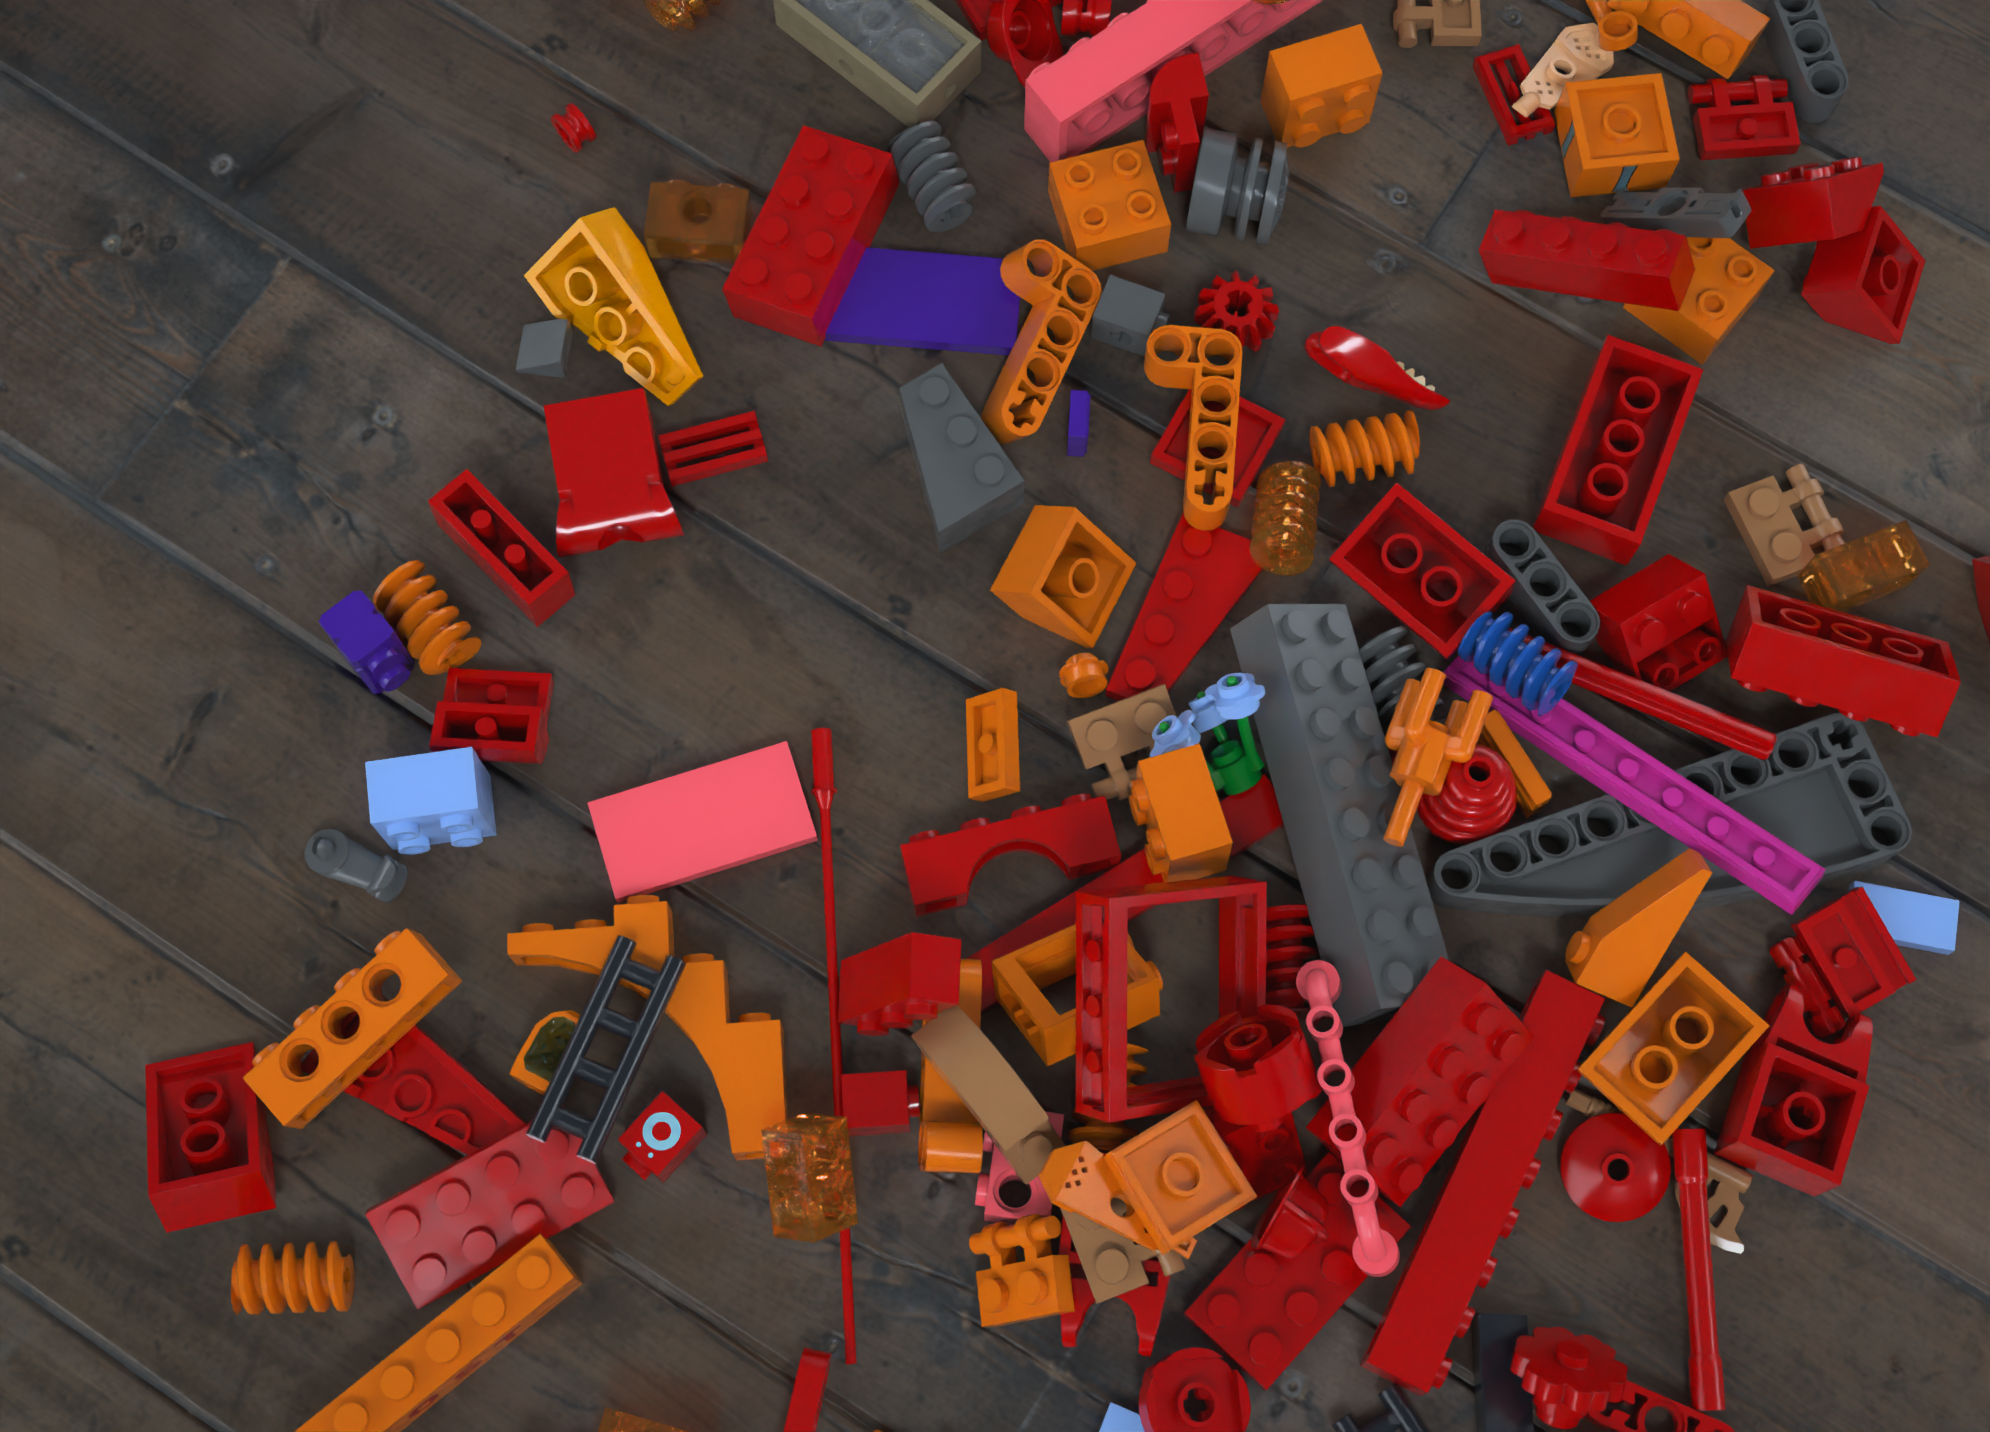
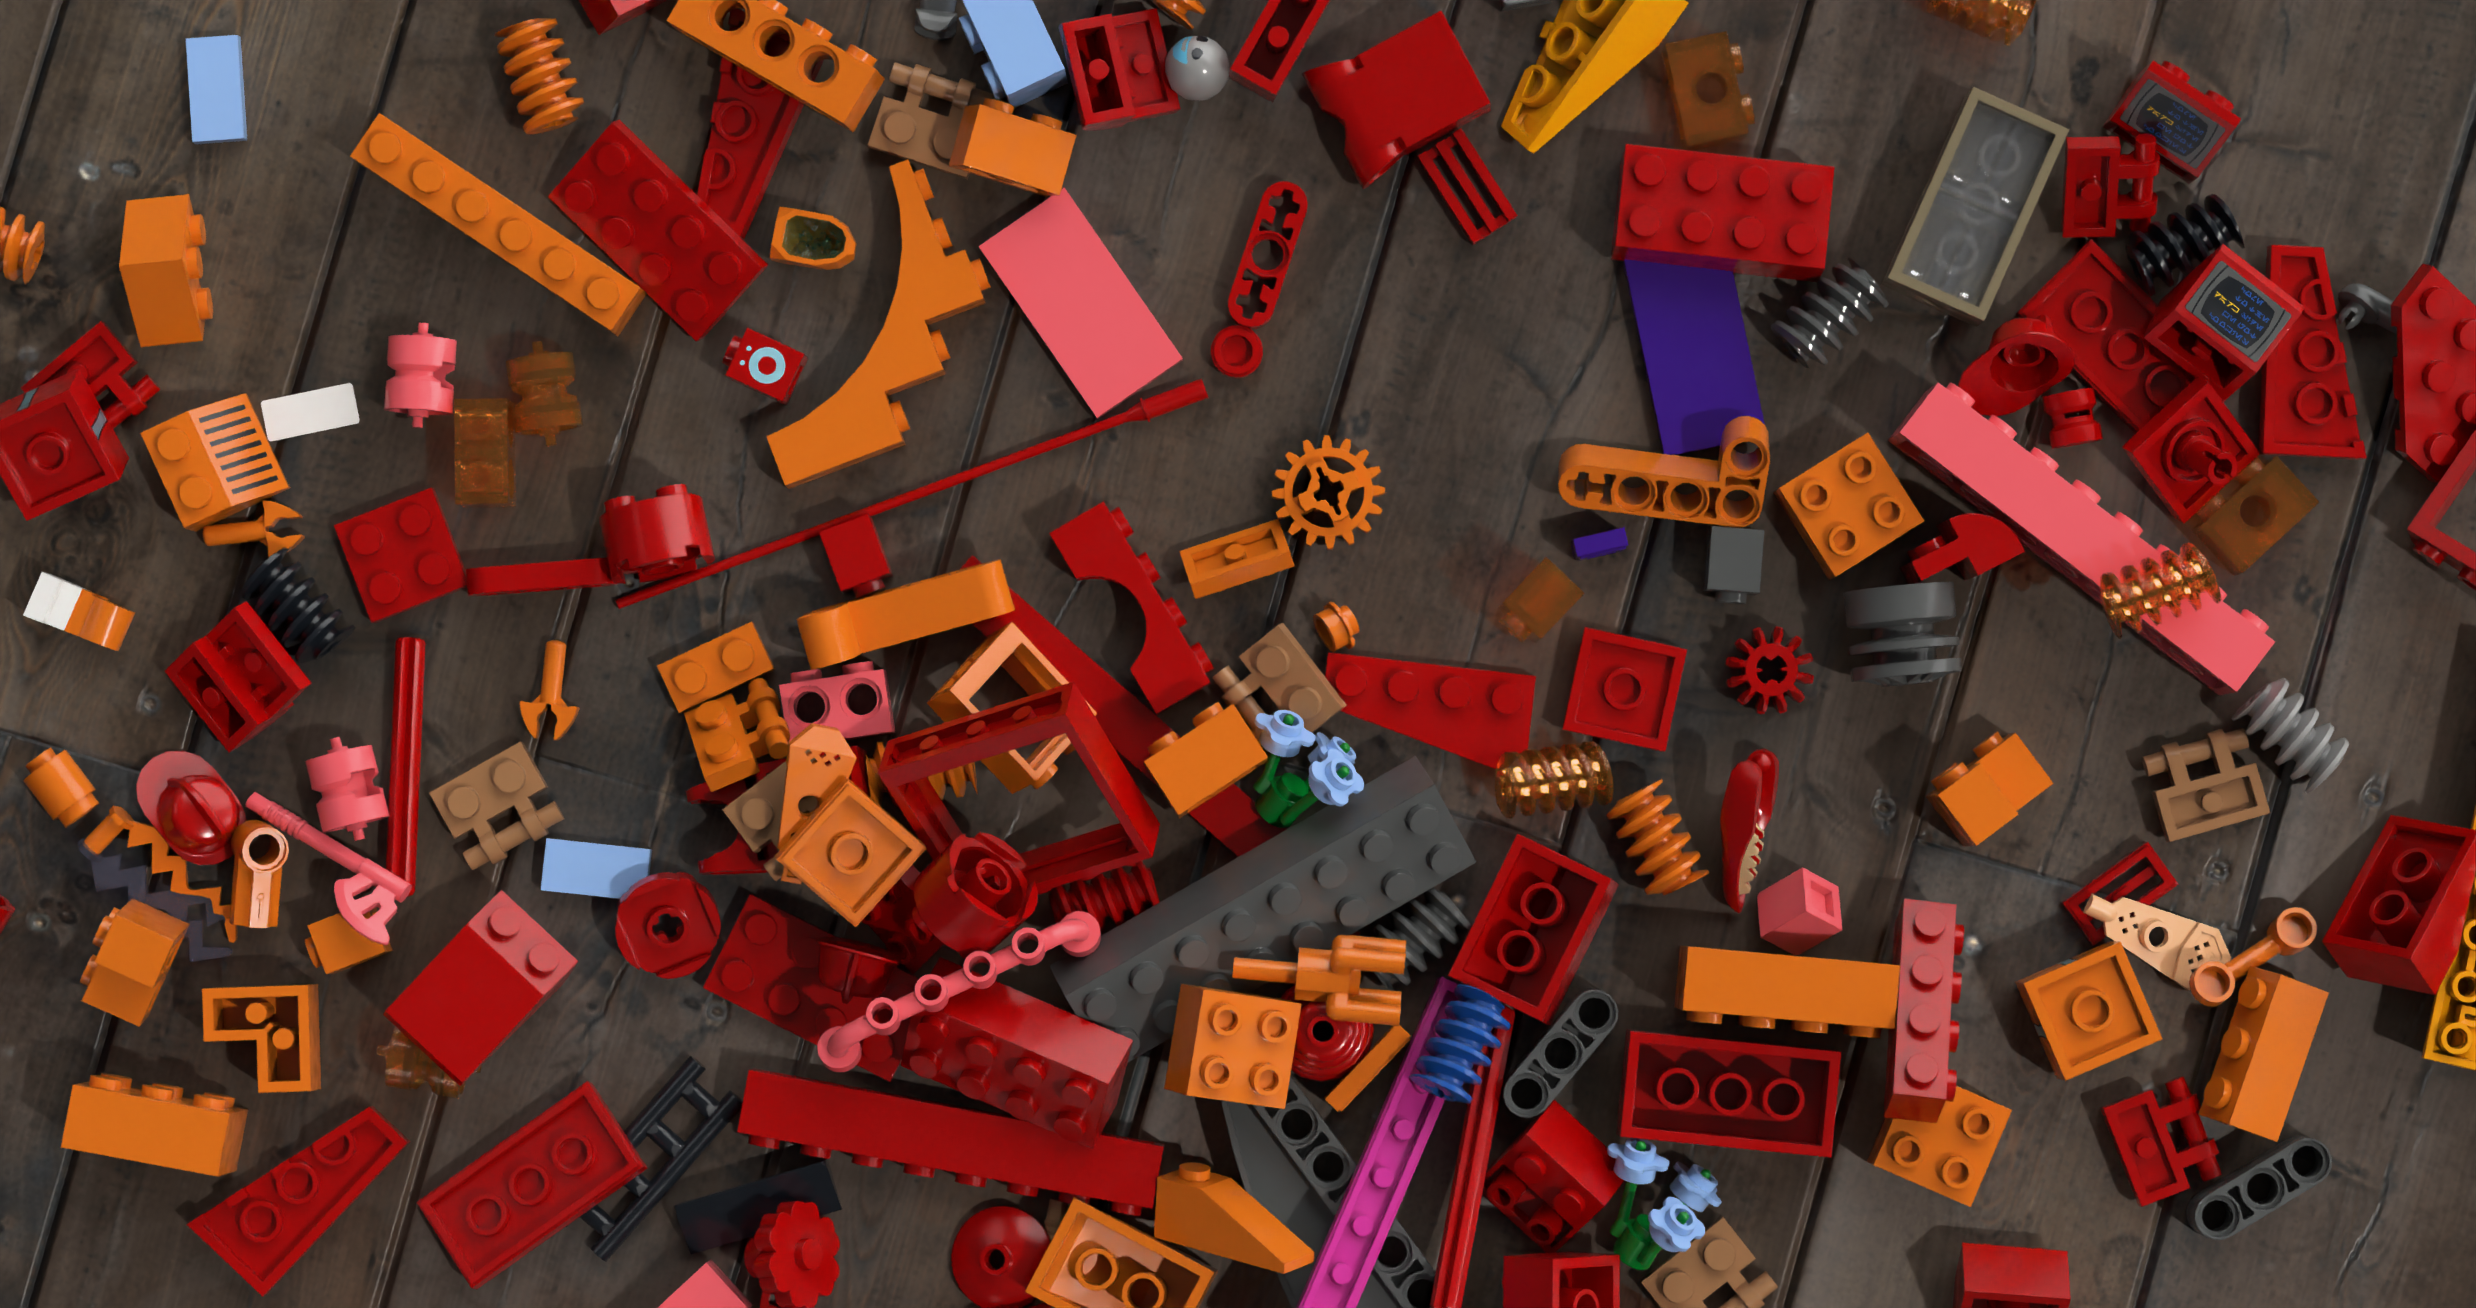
camera: 75 degrees right, 15 degrees up
(501, 908) = (917, 133): none -> medium nougat plate
(518, 645) = (1197, 68): none -> light grey piece
(532, 834) = (1012, 148): none -> orange brick
(614, 1371) = (545, 401): none -> clear orange wheel
(616, 1081) = (801, 266): black bar -> none
(678, 629) = (1267, 214): none -> red beam
(794, 1295) = (656, 534): none -> red brick
(796, 693) = (1236, 351): none -> red tile
(809, 1177) = (764, 515): clear orange brick -> none
(899, 983) = (960, 542): red brick -> none
(936, 645) = (1350, 483): none -> orange gear
(945, 1281) = (716, 667): none -> orange plate
(957, 458) = (1520, 433): dark grey wedge -> none
(989, 1090) = (884, 655): medium nougat arch -> none
(1064, 574) = (1432, 577): orange slope -> none
(1117, 480) = (1539, 602): none -> clear orange brick
(1205, 427) = (1620, 669): orange beam -> none
(1321, 86) = (2044, 689): orange brick -> none
(1399, 164) = (1988, 790): none -> orange brick
(1462, 350) = (1799, 911): none -> coral panel
(1471, 863) = (1232, 1046): none -> orange brick
(1537, 371) = (1787, 988): none -> orange brick
(1694, 216) = (1996, 1115): dark grey piece -> none
(1738, 521) = (1666, 1228): none -> light blue plant
(1812, 202) = (2063, 1230): red slope -> none

